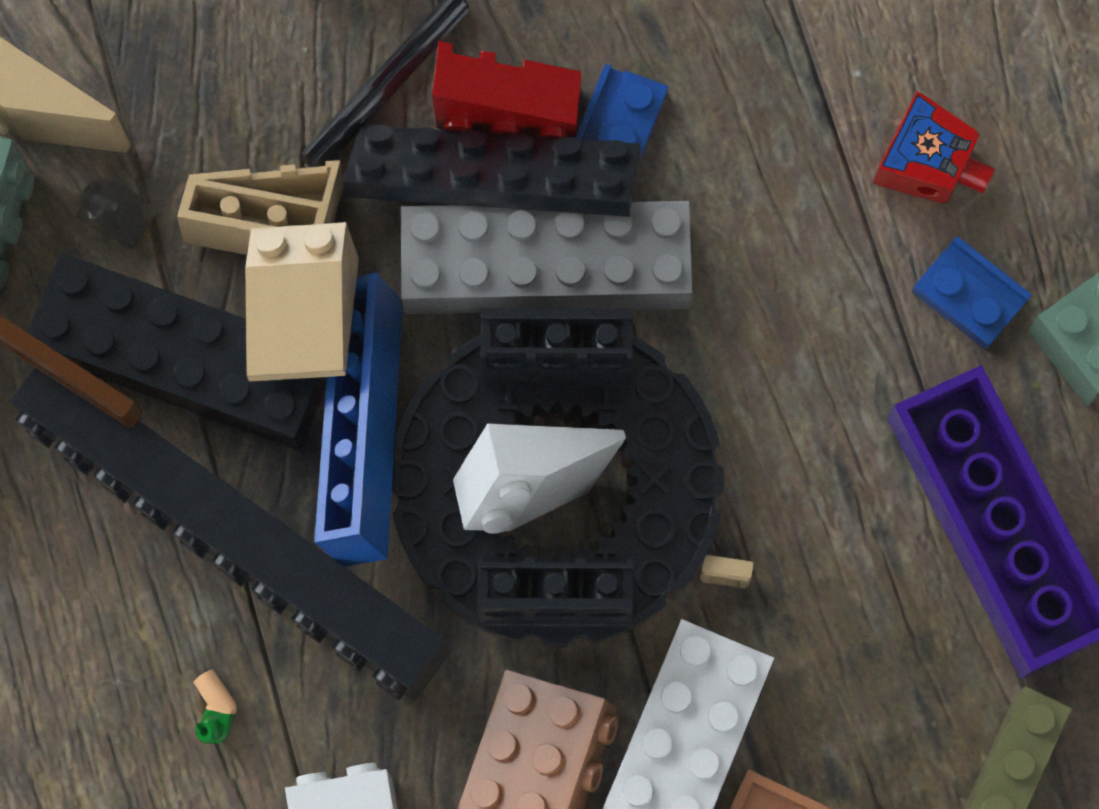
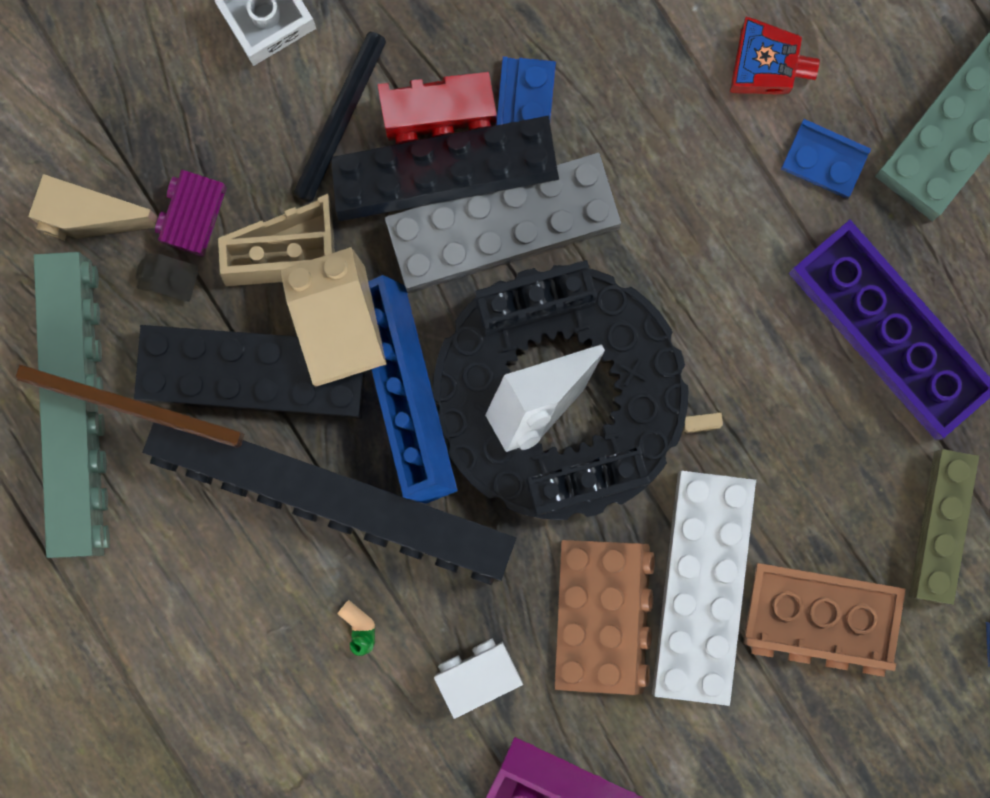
camera: 15 degrees left, 10 degrees up
(169, 143) = (191, 212): none -> magenta brick

